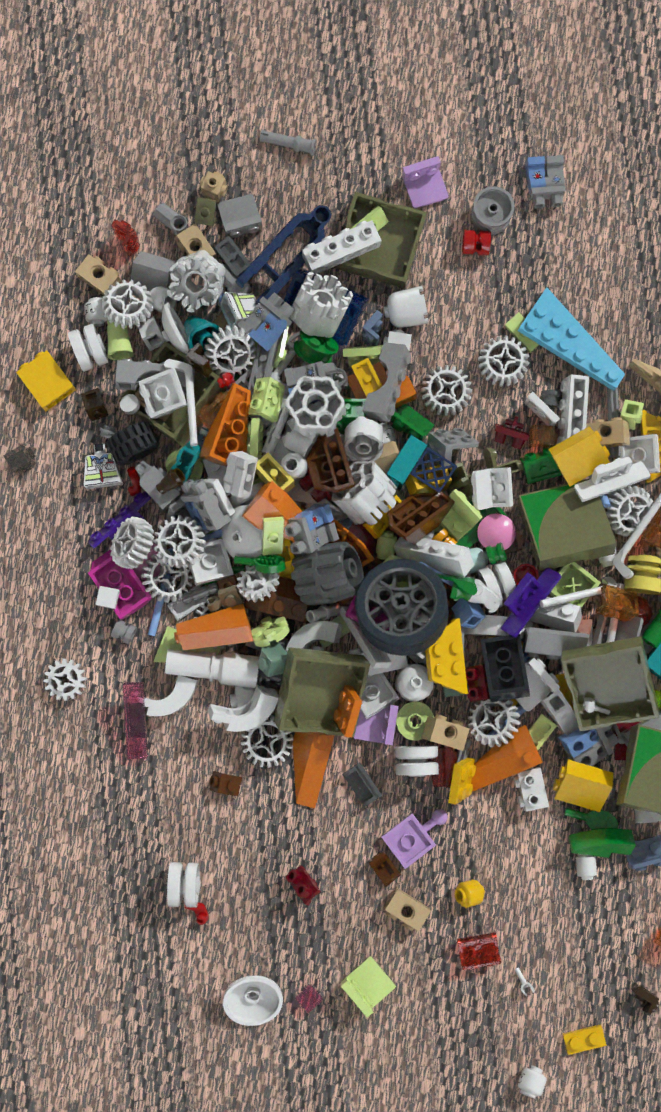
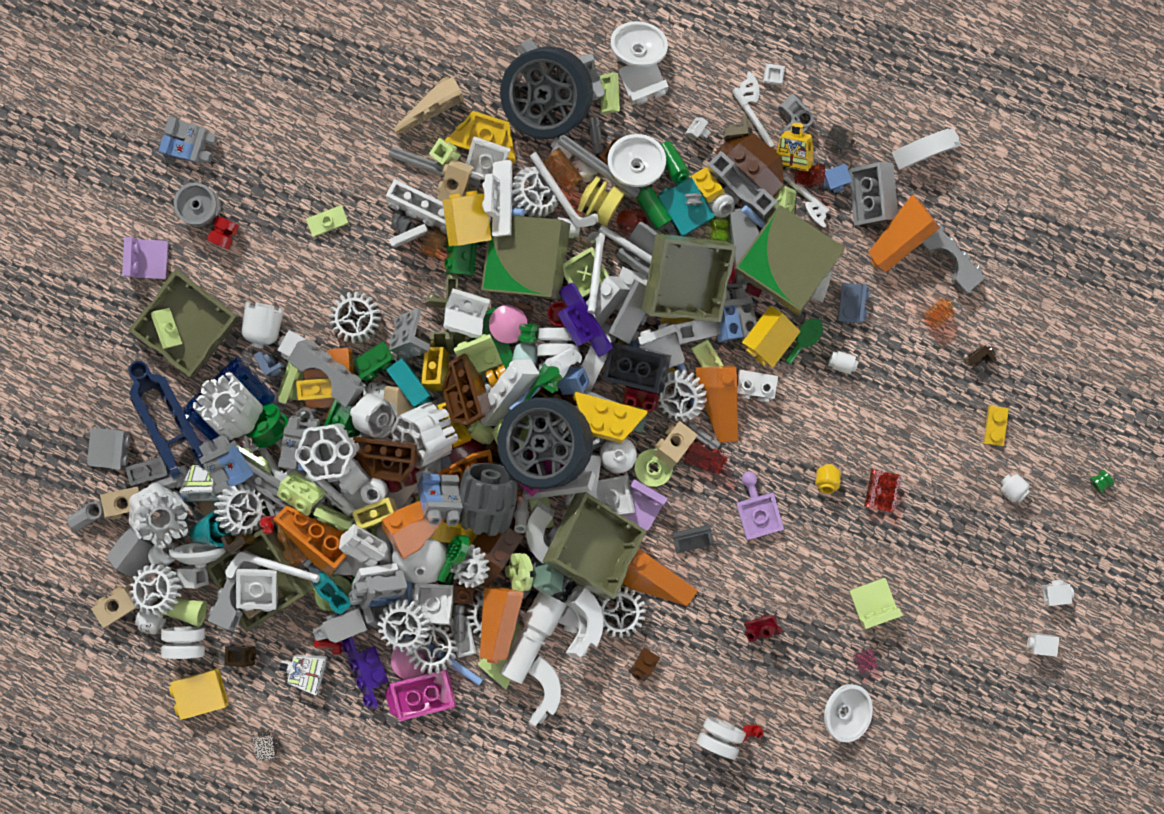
camera: 70 degrees left, 5 degrees up
(68, 671) = (497, 784): white gear -> none
(107, 431) = (271, 652): light grey plate -> none
(107, 597) = (430, 711): white tile -> none
(123, 631) = (469, 705): light grey wheel -> none
(128, 235) = (82, 566): clear red bracket -> none
(130, 404) = (254, 623): white tile -> none
(132, 543) = (387, 670): white gear -> none
(133, 443) = (292, 634): black tyre -> none
(135, 720) = (554, 727): clear pink plate -> none
(172, 480) = (343, 611): dark brown cone -> none
(205, 211) = (93, 481): olive bracket -> none
(214, 191) = (75, 463): tan brick -> none
(226, 597) = (472, 600): dark tan plate -> none
(272, 535) = (432, 537): yellowish green plate -> none
(296, 143) = (57, 366): light grey pin -> none
(342, 247) = (179, 365): white brick -> none
(347, 711) = (621, 528): orange plate -> none
(384, 868) = (776, 547): reddish brown bracket -> none
(398, 901) = (809, 543): tan brick -> none
(416, 762) = (693, 482): white wheel -> none
(441, 458) = (419, 350): dark blue window -> none
(461, 780) = (724, 447): yellow plate -> none
(519, 436) = (424, 266): dark red hips -> none
(521, 362) = (350, 244): white gear -> none
(523, 981) = (925, 460): white hand -> none
(563, 335) = (342, 187): medium azure wing -> none
(589, 706) = (701, 303): white hand -> none
(602, 842) = (828, 340): green slope -> none
(618, 603) = (617, 238): clear orange bracket -> none

